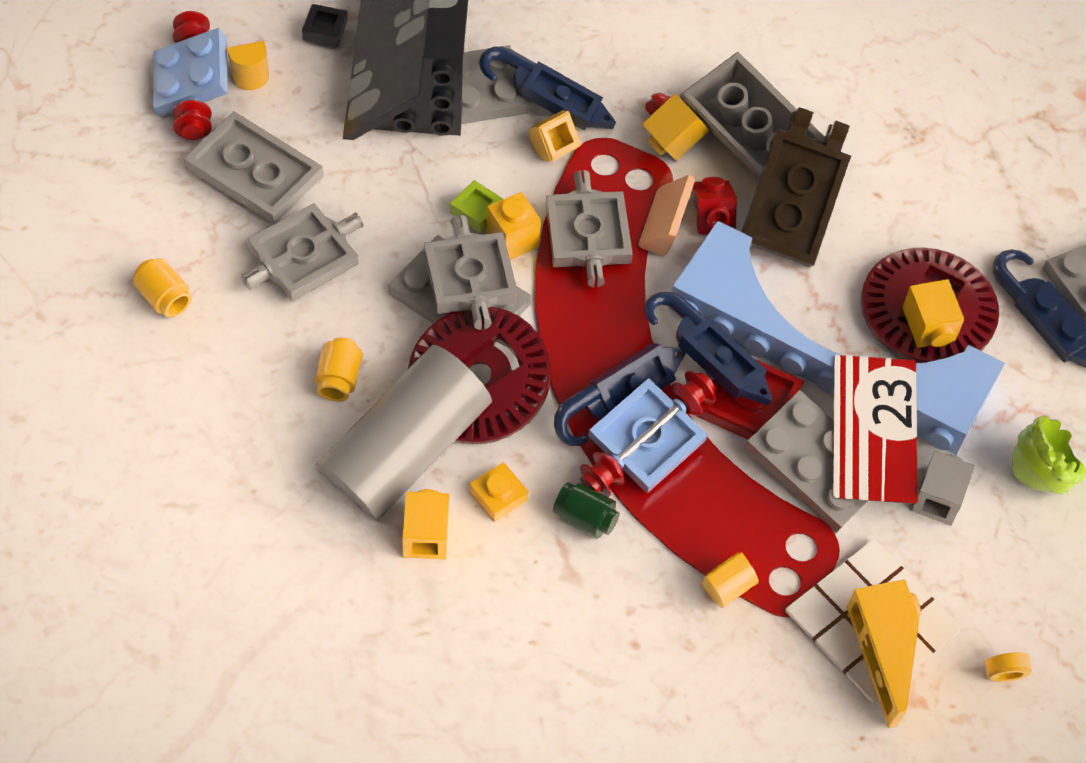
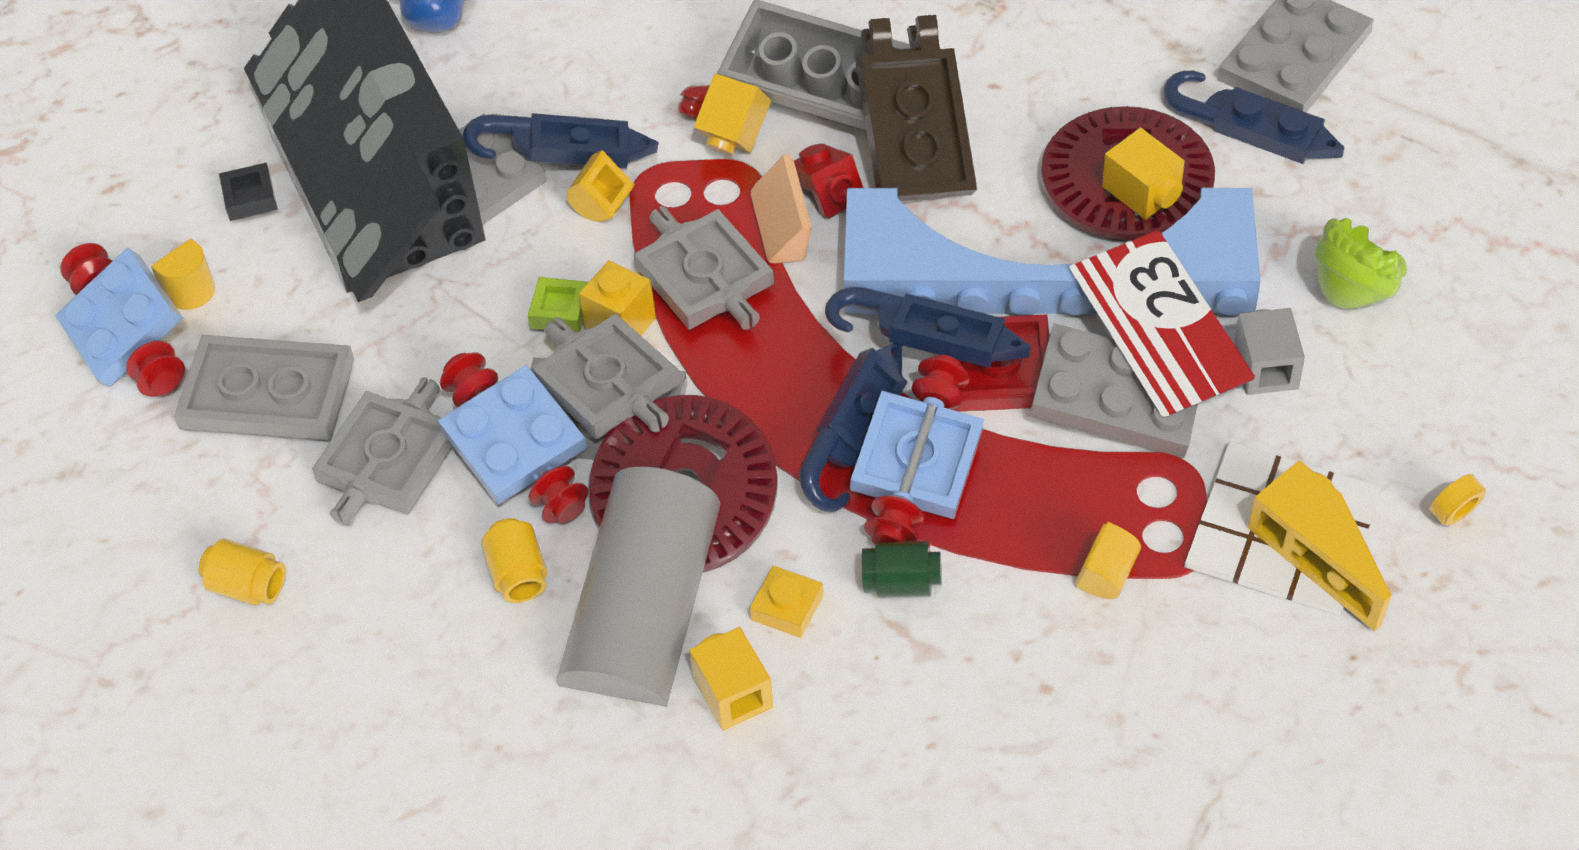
camera: 20 degrees left, 5 degrees down
(387, 283) = (513, 436): none -> light blue plate

